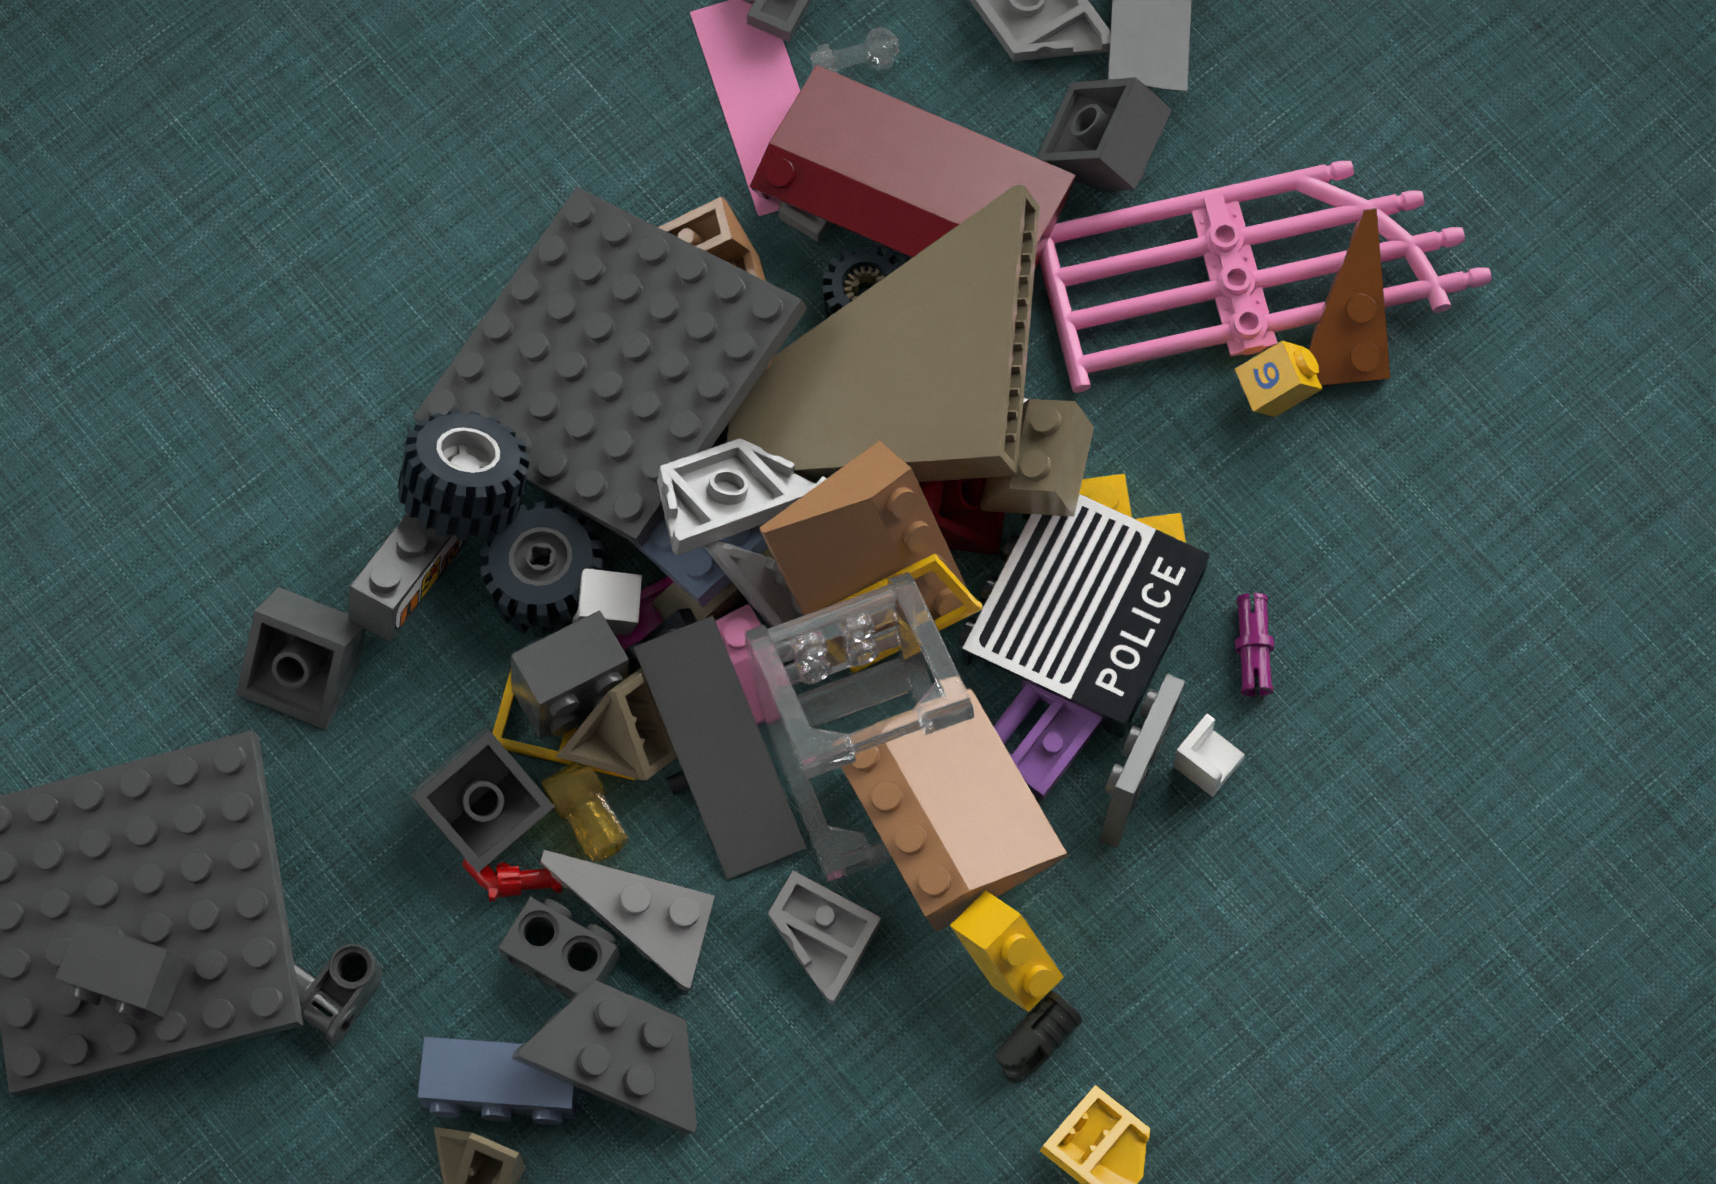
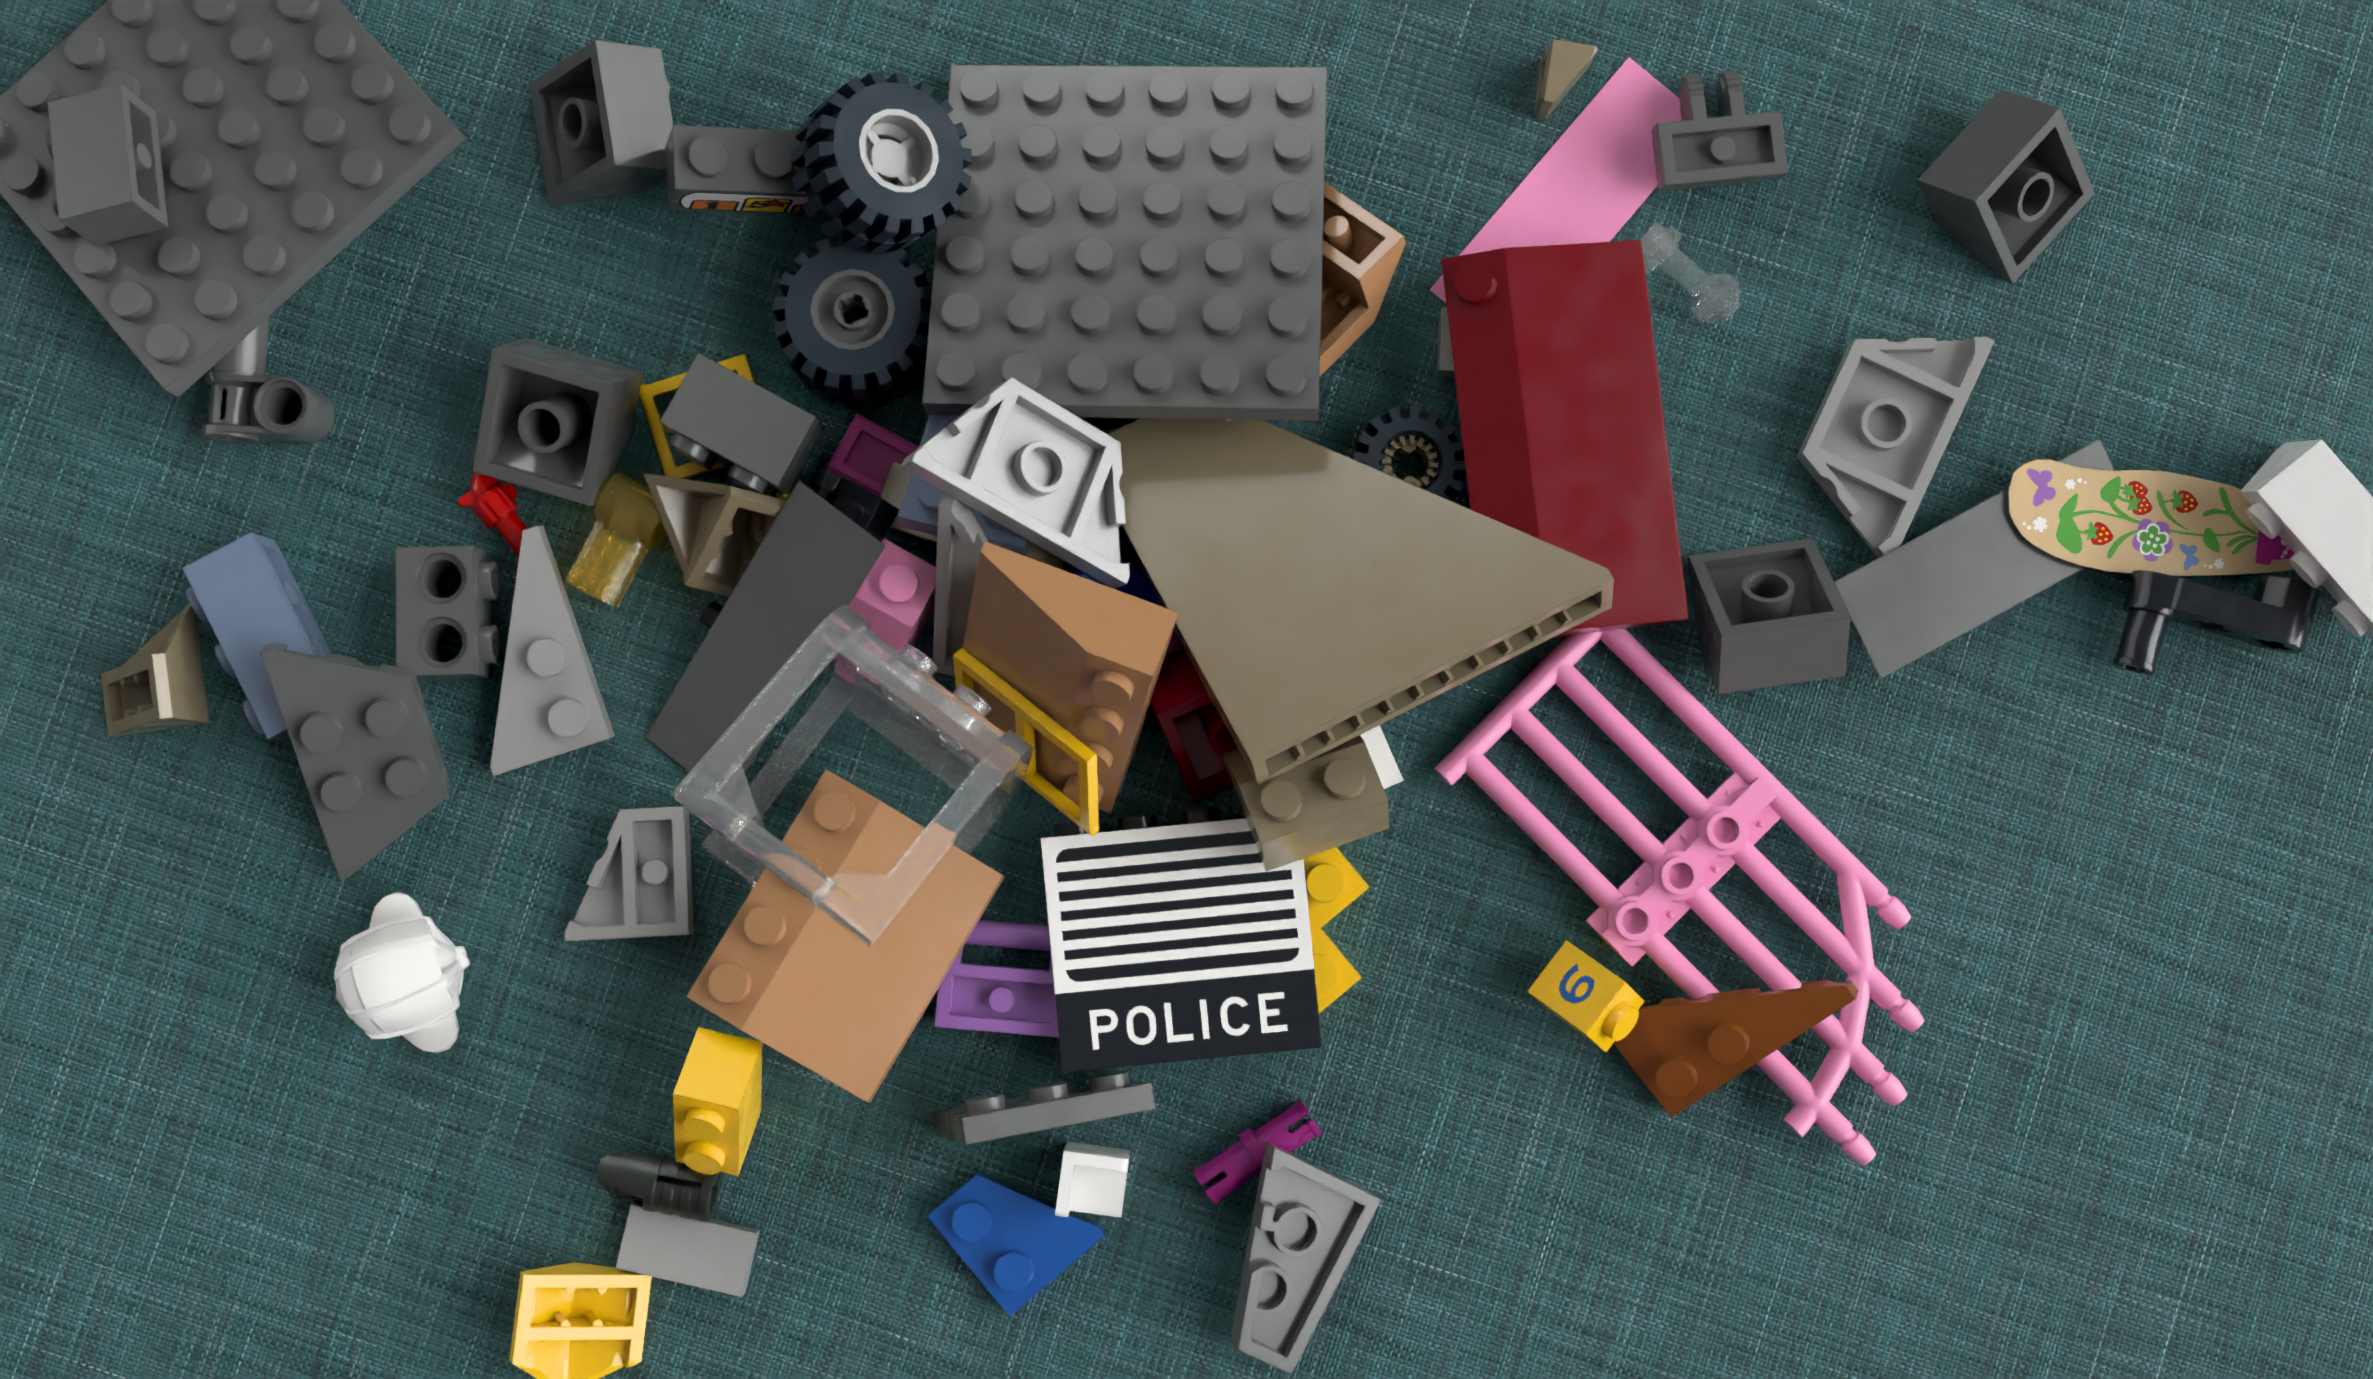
camera: 55 degrees right, 15 degrees up
(614, 595) = (852, 415): white panel -> none
(674, 57) = (1559, 71): none -> dark tan slope
(789, 1122) = (402, 977): none -> white piece
(1092, 1050) = (688, 1250): none -> light grey tile
(1215, 835) = (1011, 1238): none -> blue wing
(1336, 655) = (1295, 1254): none -> wing

